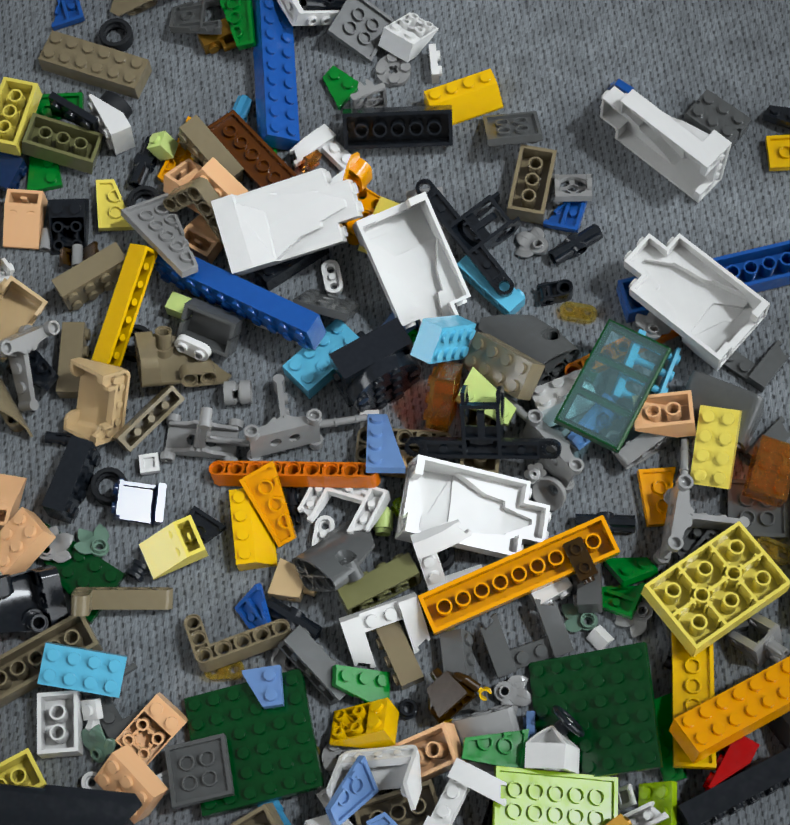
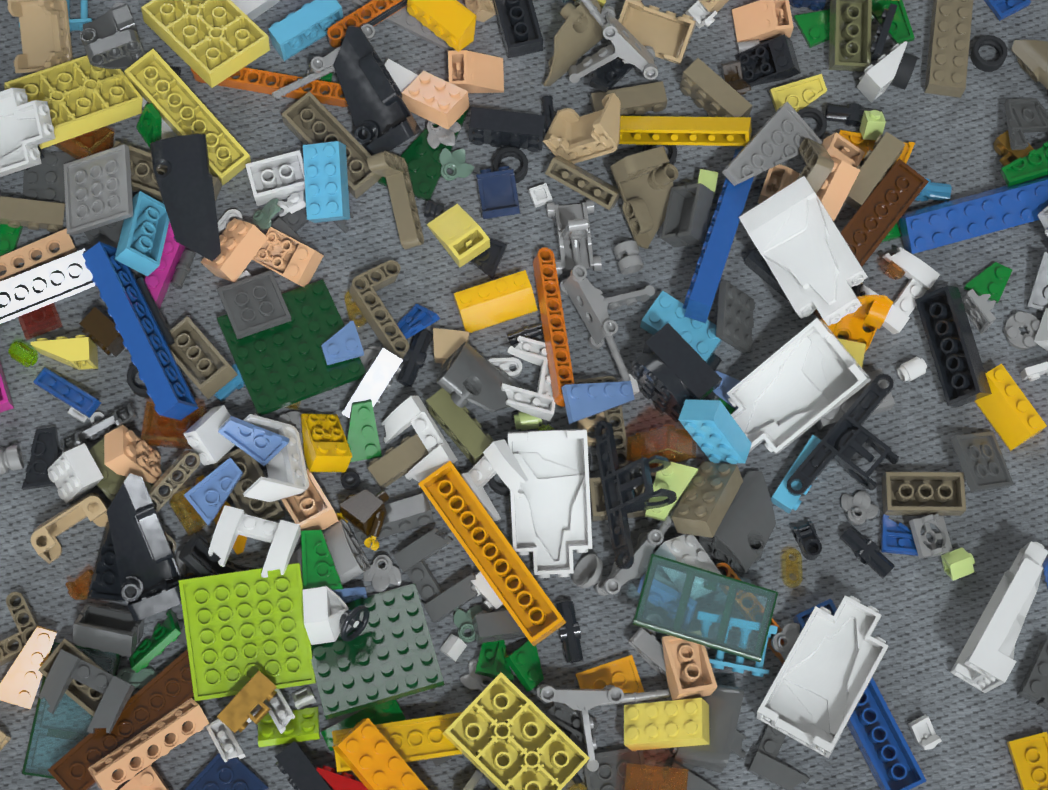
camera: 70 degrees right, 5 degrees up
(77, 254) = (735, 77): light grey piece -> none
(192, 347) = (662, 209): white plate -> none
(269, 500) = (522, 308): light orange wing -> none
(333, 278) = (771, 319): white plate -> none
(409, 168) = (912, 369): none -> white brick
(538, 468) = (607, 560): white plant -> none
(580, 561) = (514, 606): dark brown bracket -> none
(602, 171) = (958, 563): none -> yellowish green brick
(752, 234) = (924, 733): none -> white bracket

